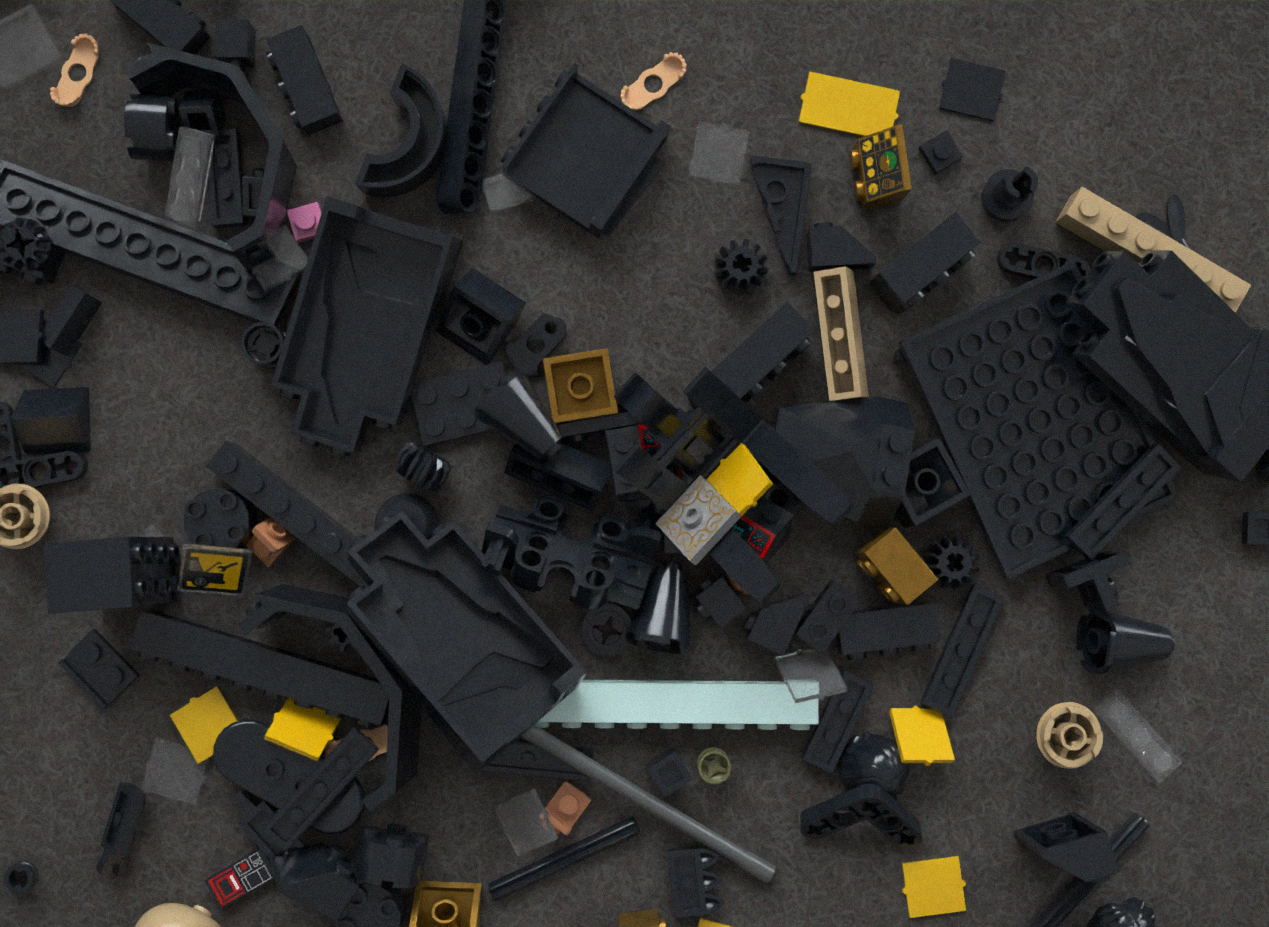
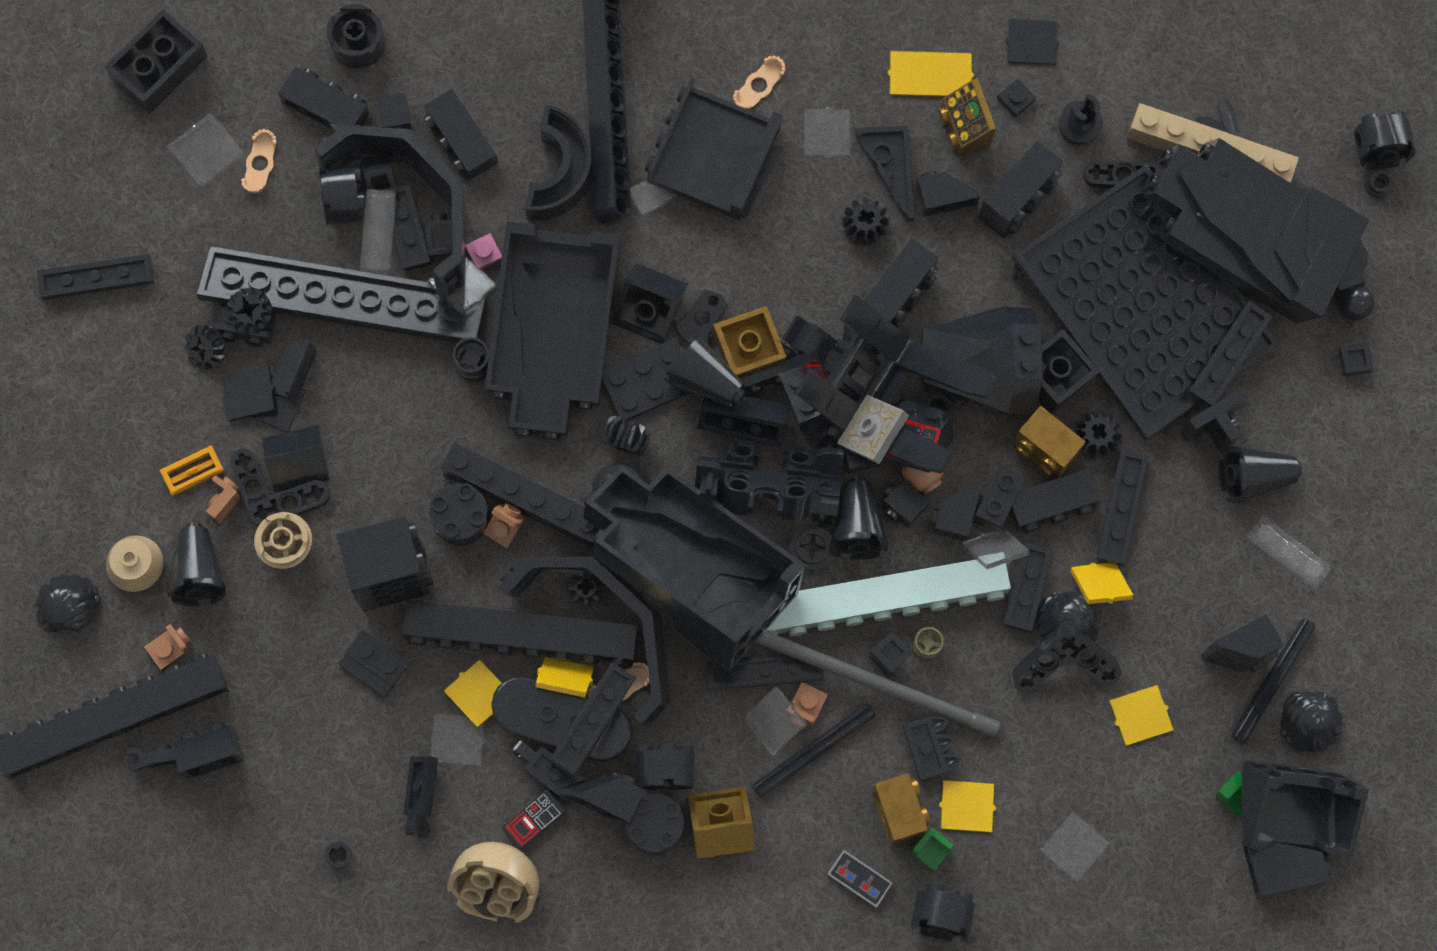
camera: 10 degrees left, 10 degrees down
(214, 569) = (463, 554): piece -> none
(740, 479) = (902, 389): yellow piece -> none
(841, 334) = (962, 259): tan brick -> none
(1069, 735) = (1227, 557): tan cone -> none

